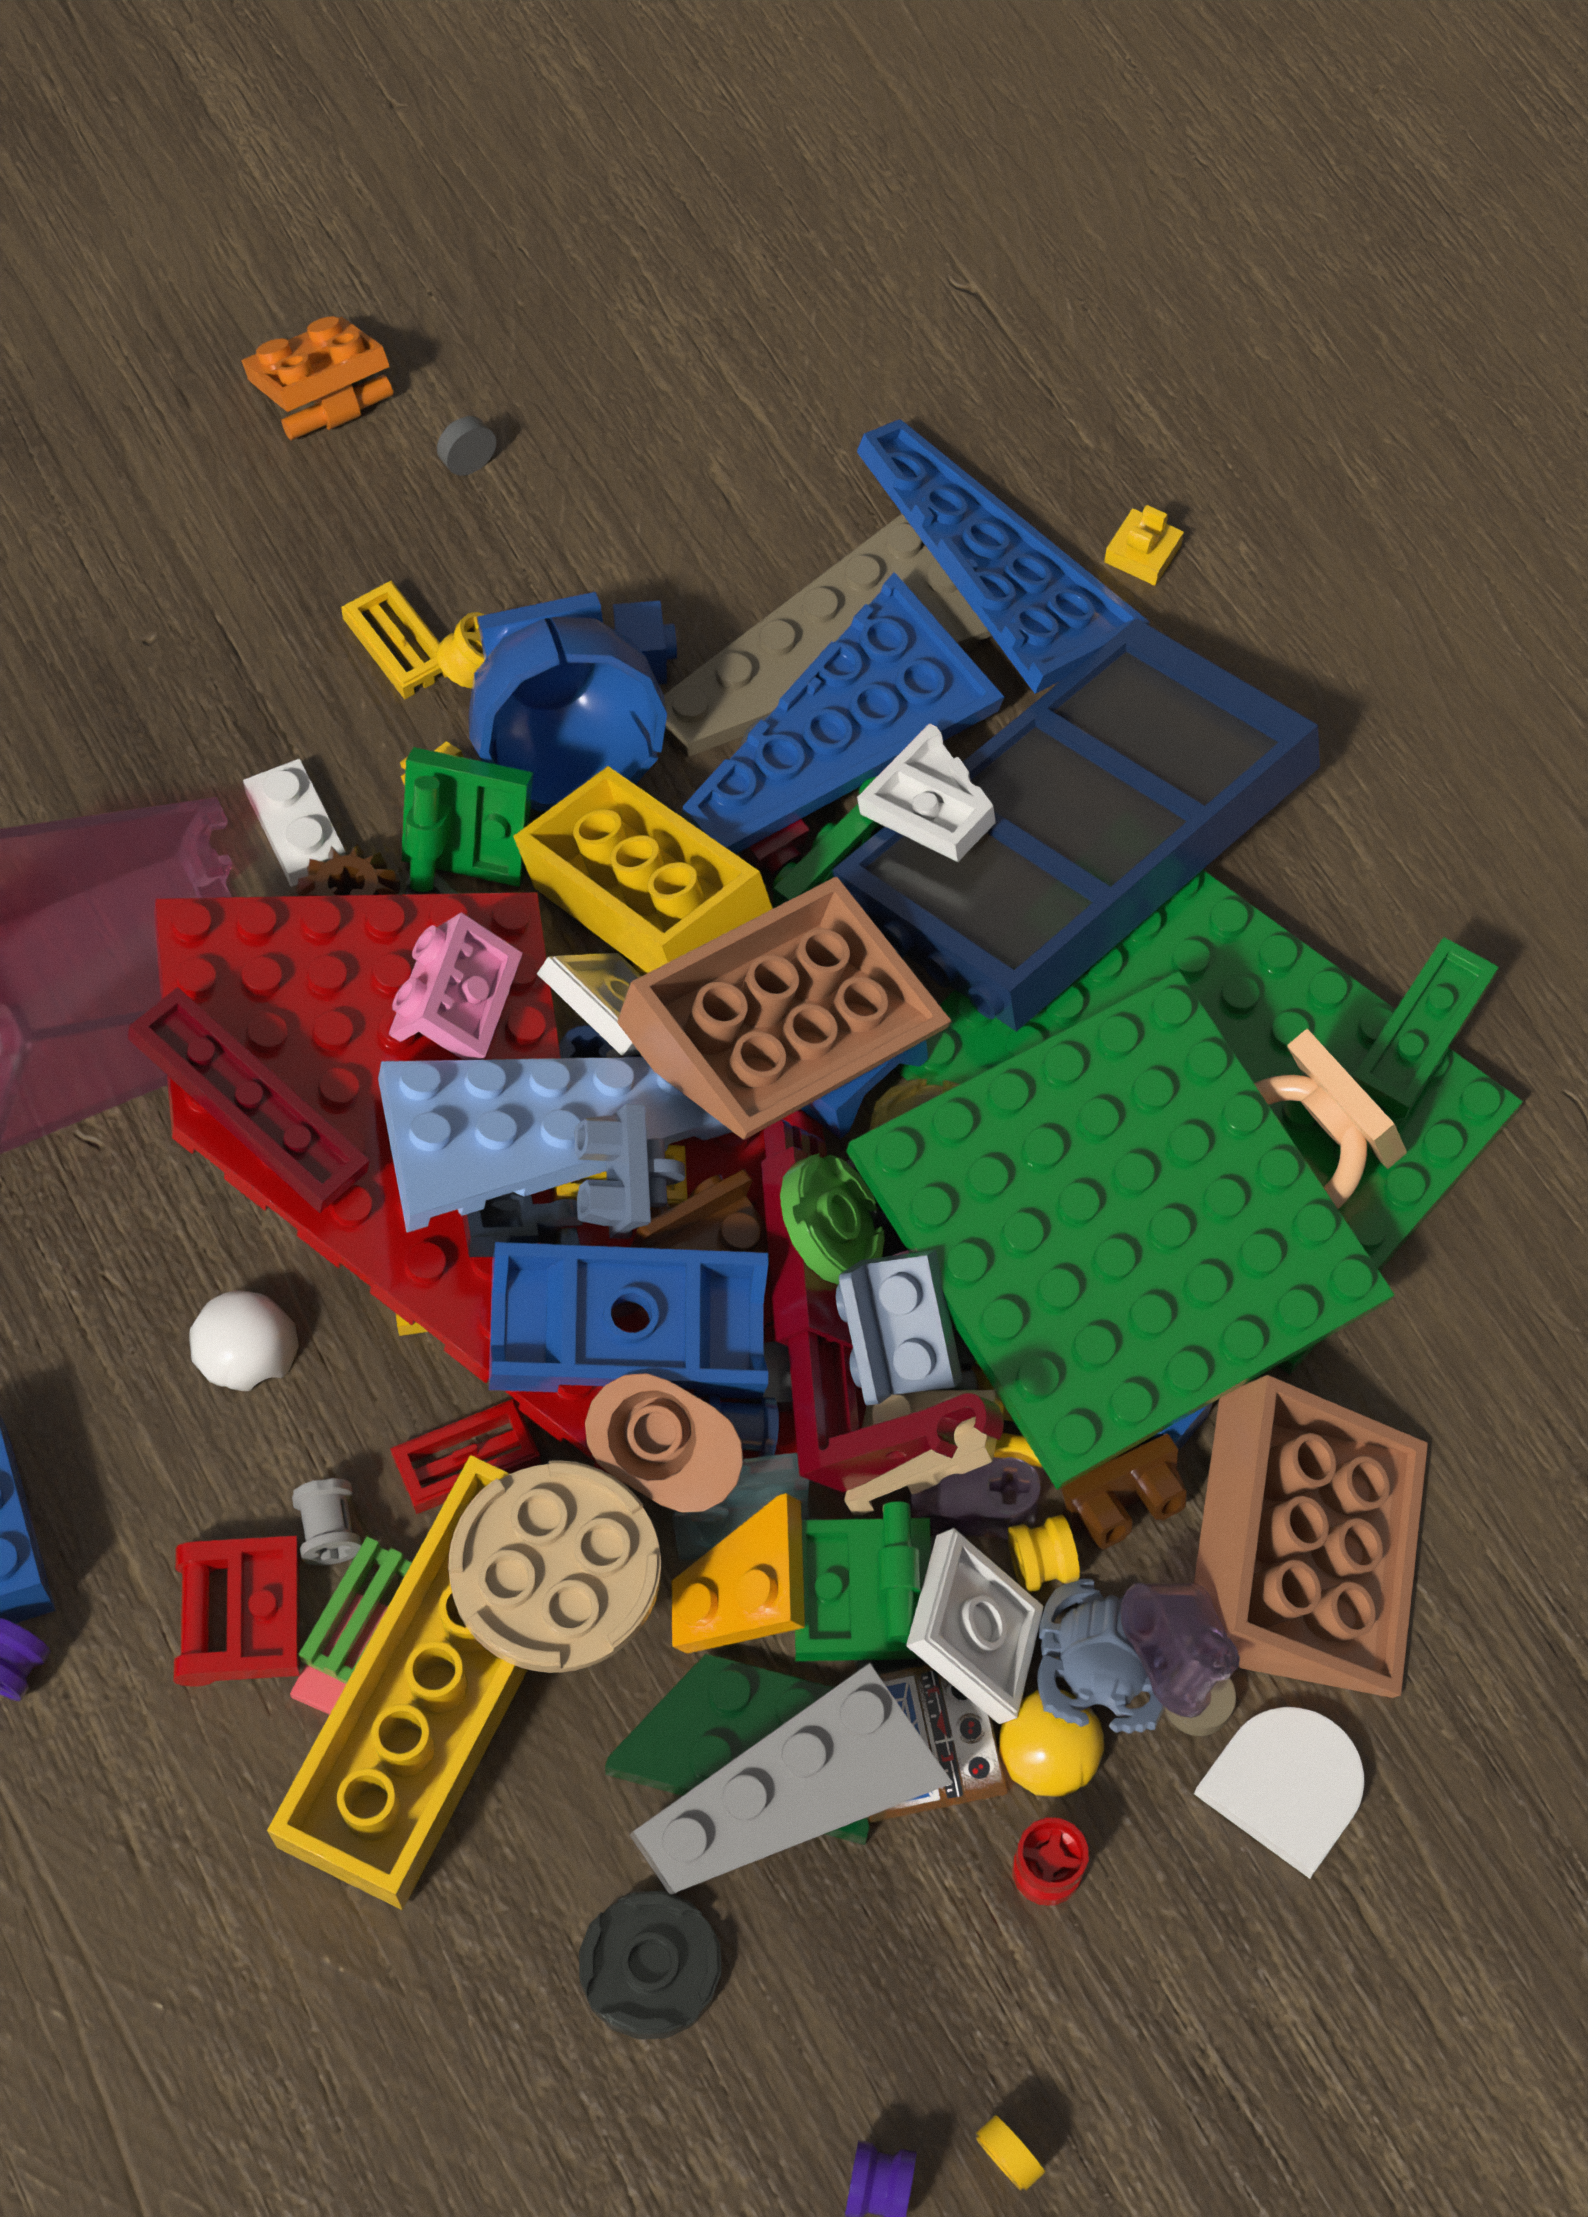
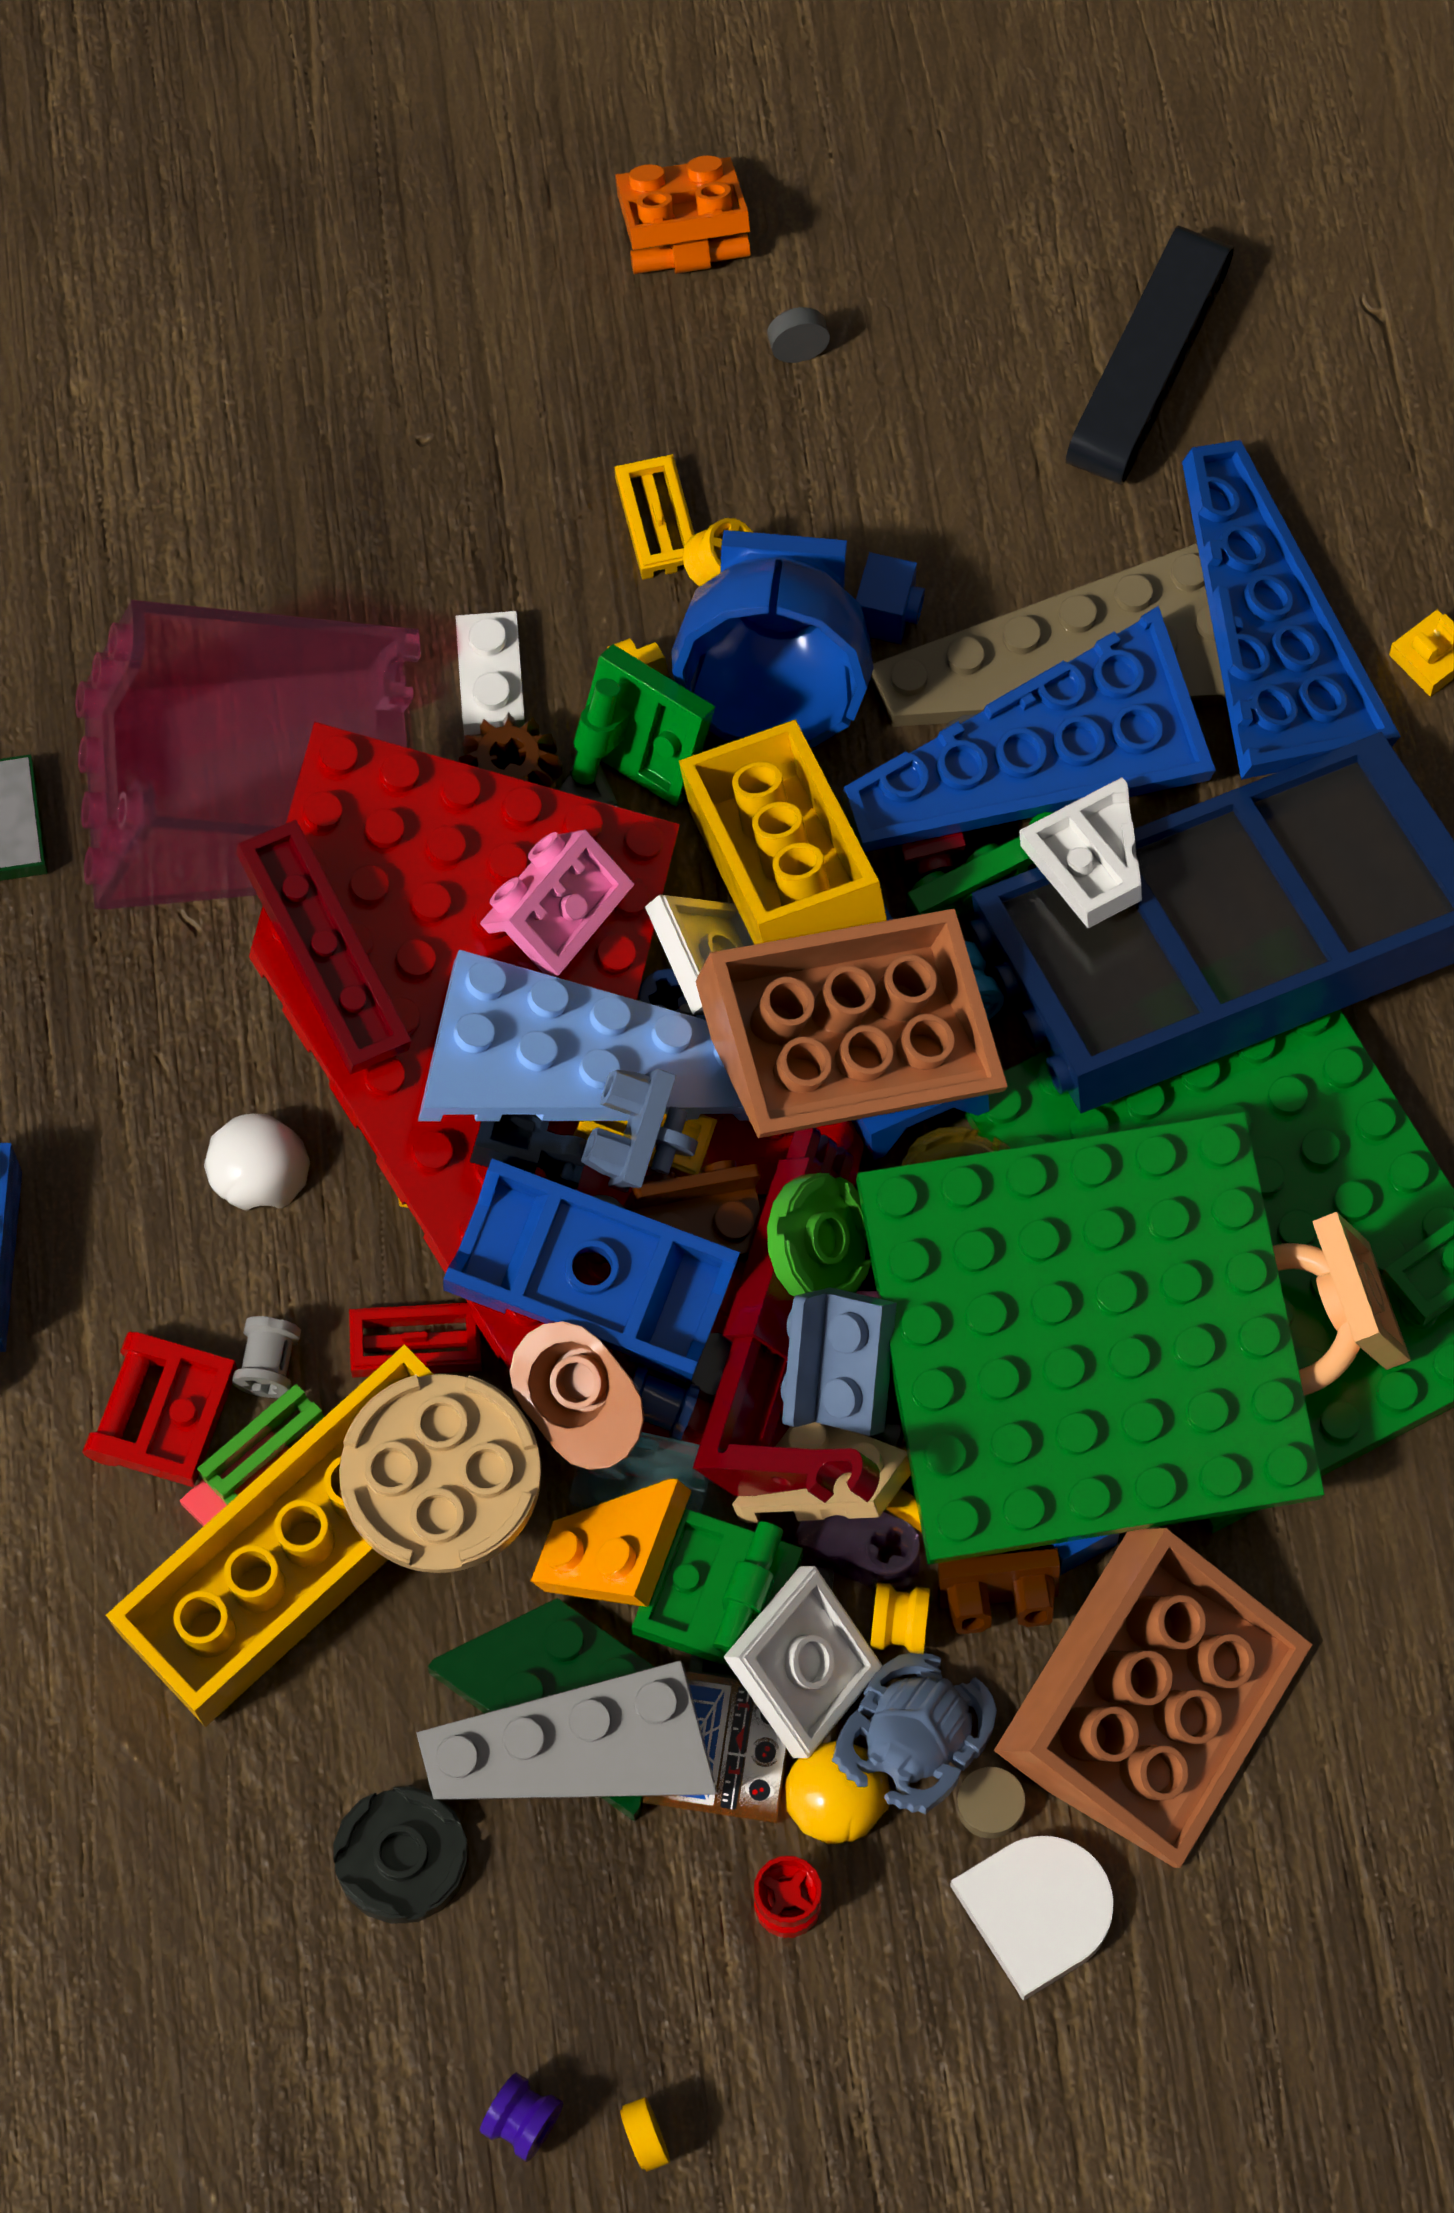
camera: 25 degrees right, 5 degrees up
(789, 373) = (1149, 355): none -> black beam
(1178, 1639) = (979, 1744): clear purple piece -> none

